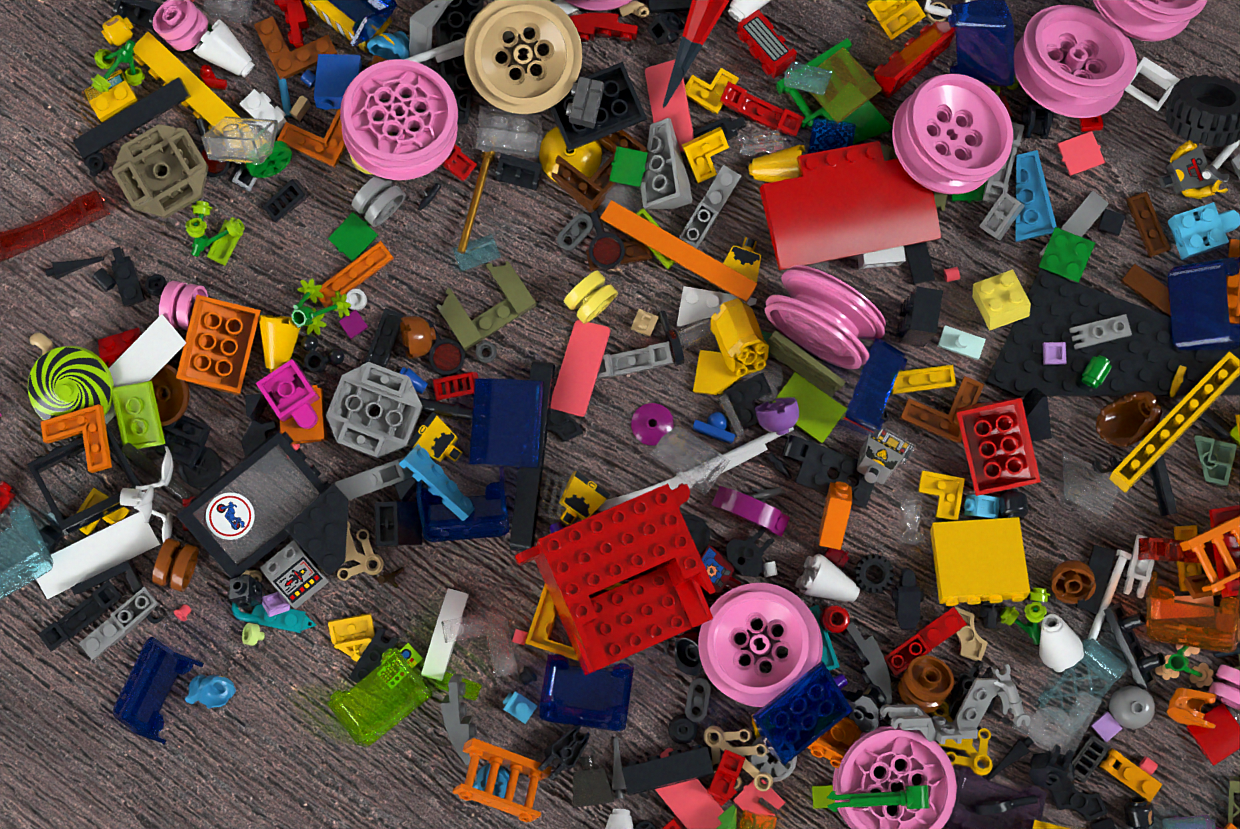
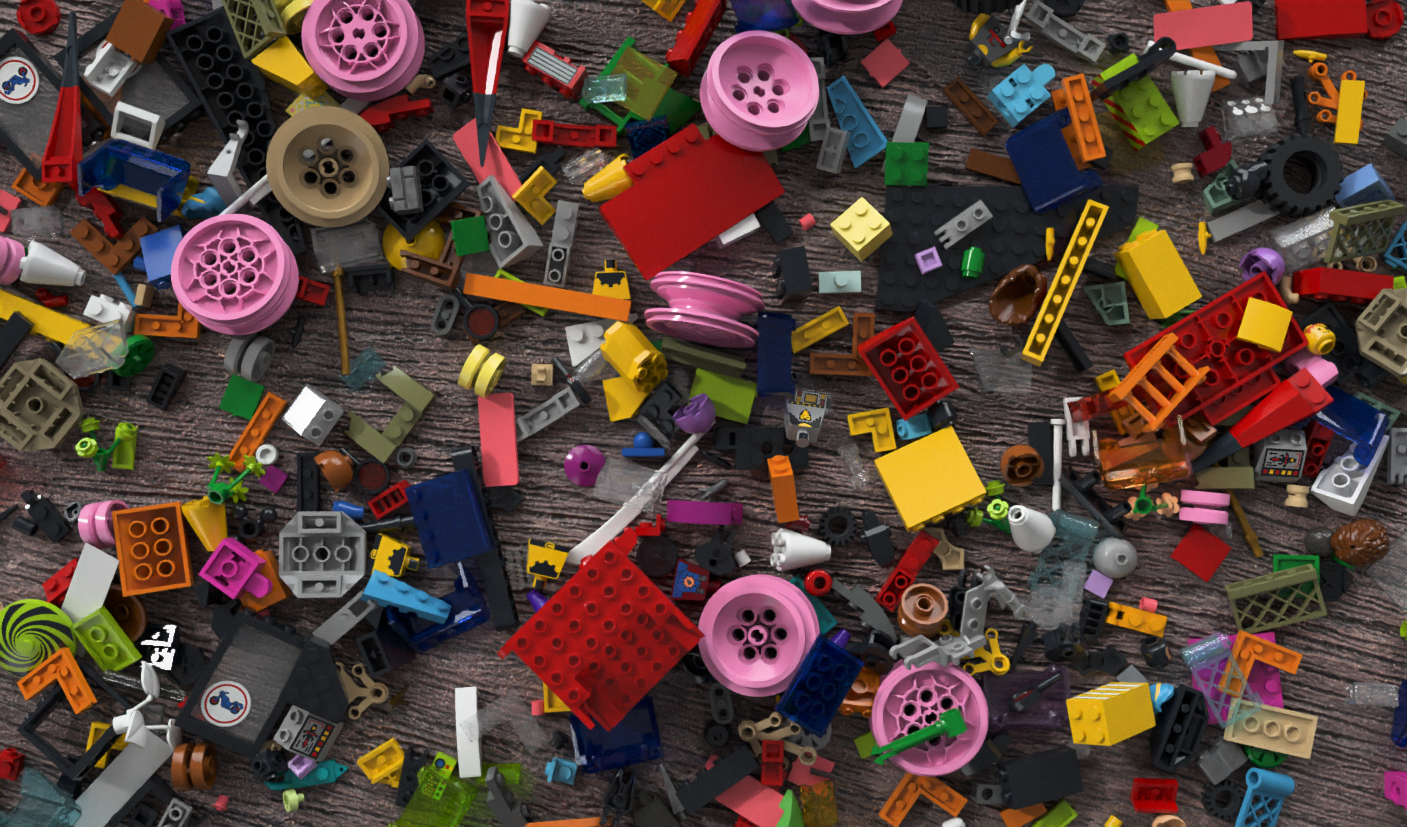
camera: 20 degrees left, 5 degrees up
(415, 277) = (312, 414): none -> light grey piece
(691, 507) = (647, 529): none -> red bracket
(1186, 707) = (1164, 540): orange helmet -> none

